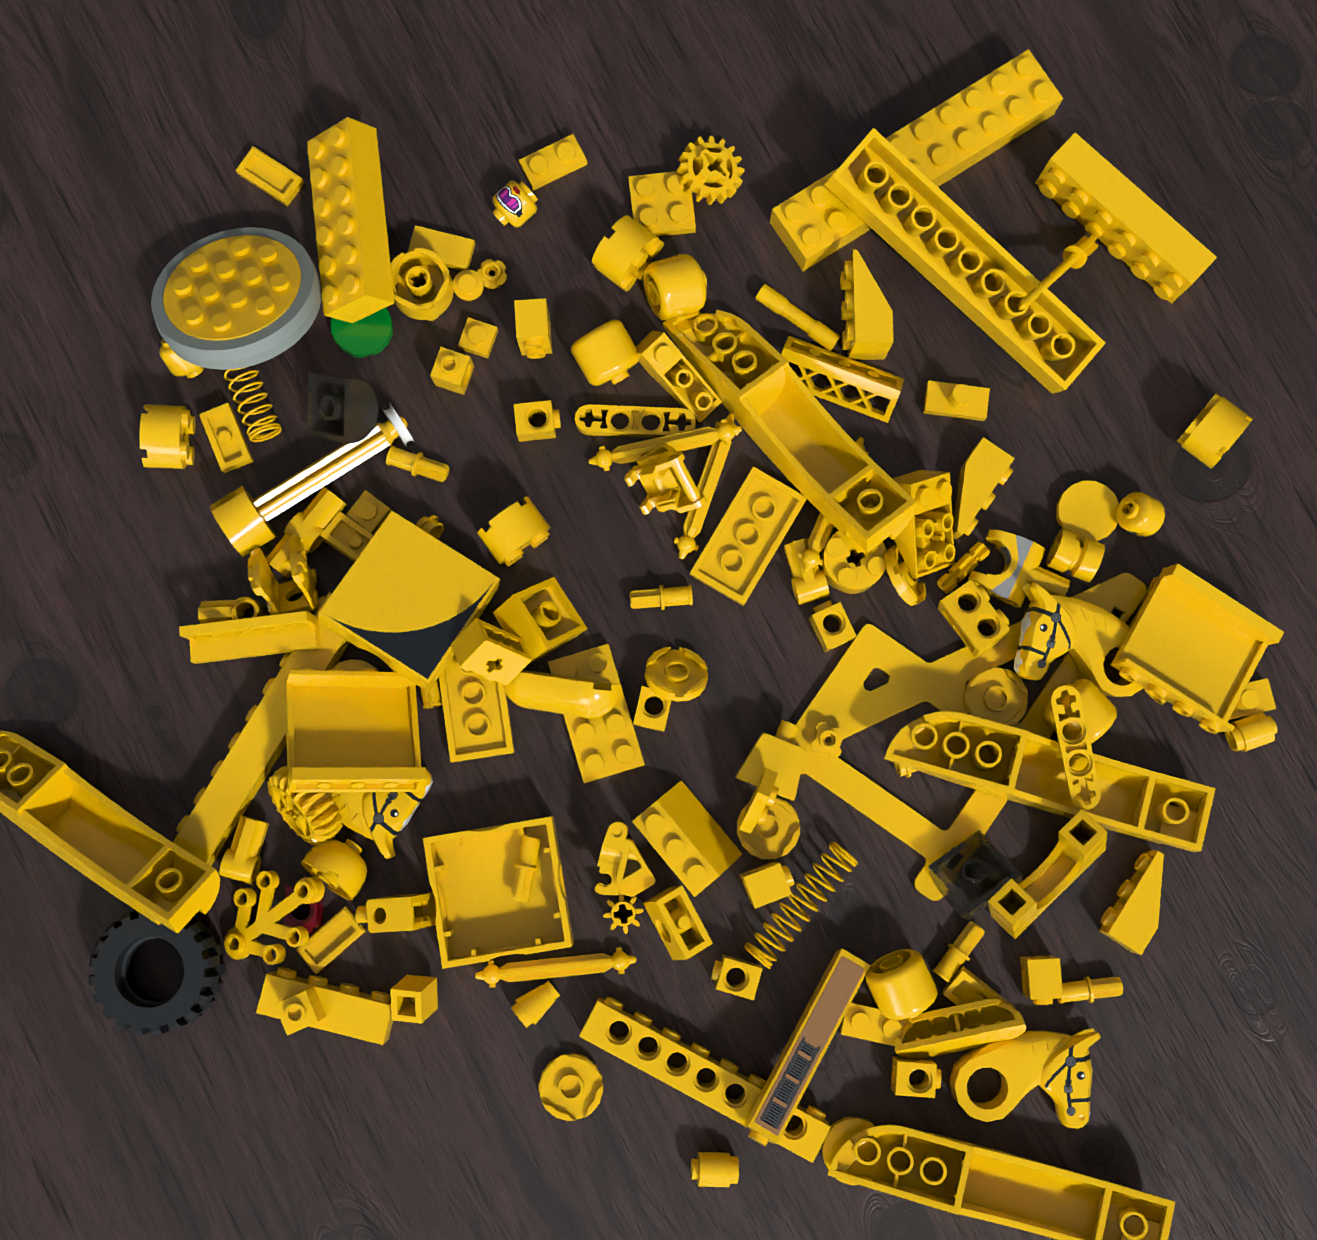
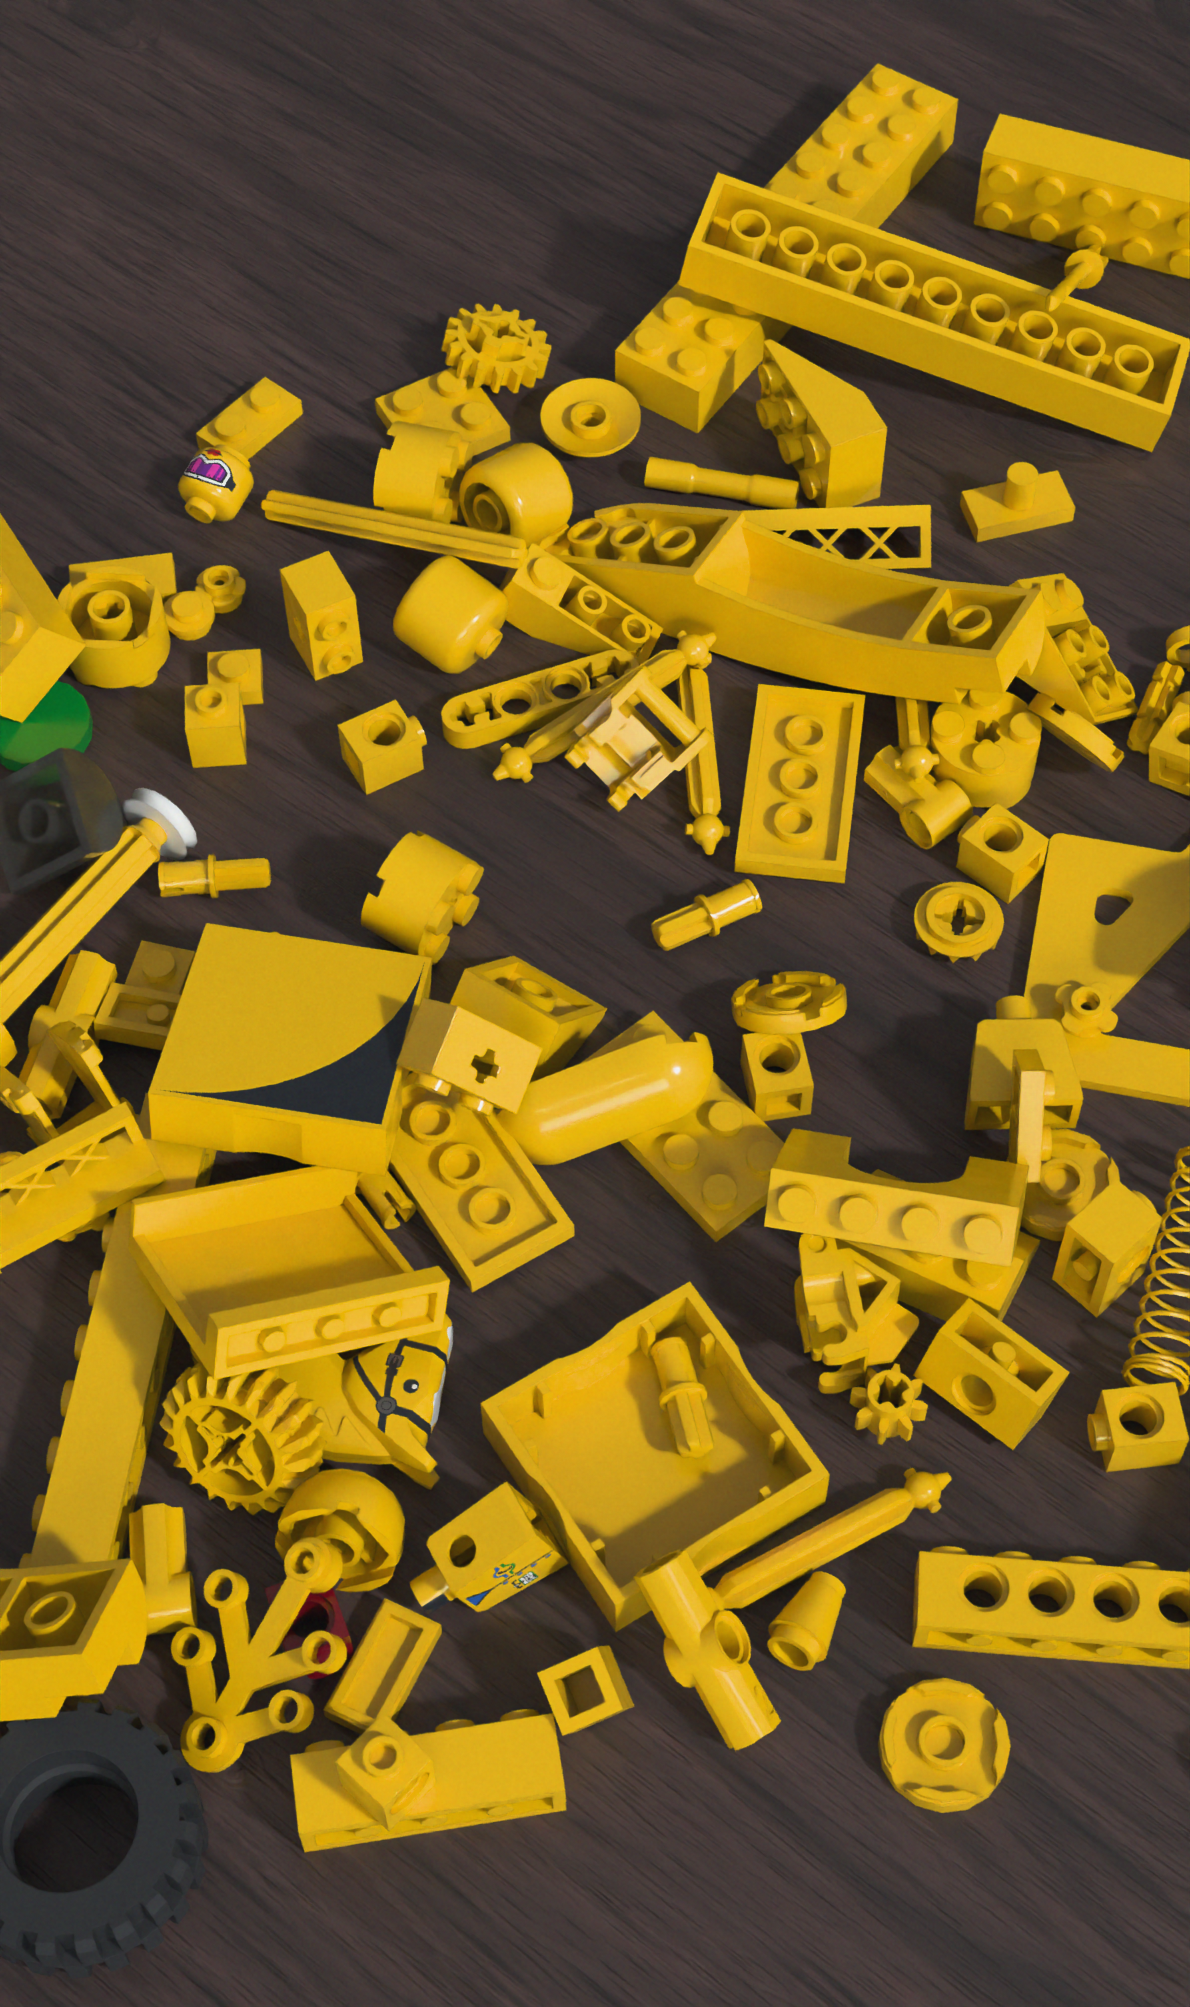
camera: 20 degrees left, 25 degrees down
(476, 1006) = (707, 1649): none -> yellow piece
(596, 284) = (396, 529): none -> yellow axle
(687, 855) = (962, 1218): none -> yellow arch
(747, 229) = (590, 417): none -> yellow dish
(805, 652) = (981, 916): none -> yellow gear
(977, 478) = (1109, 577): yellow slope -> none

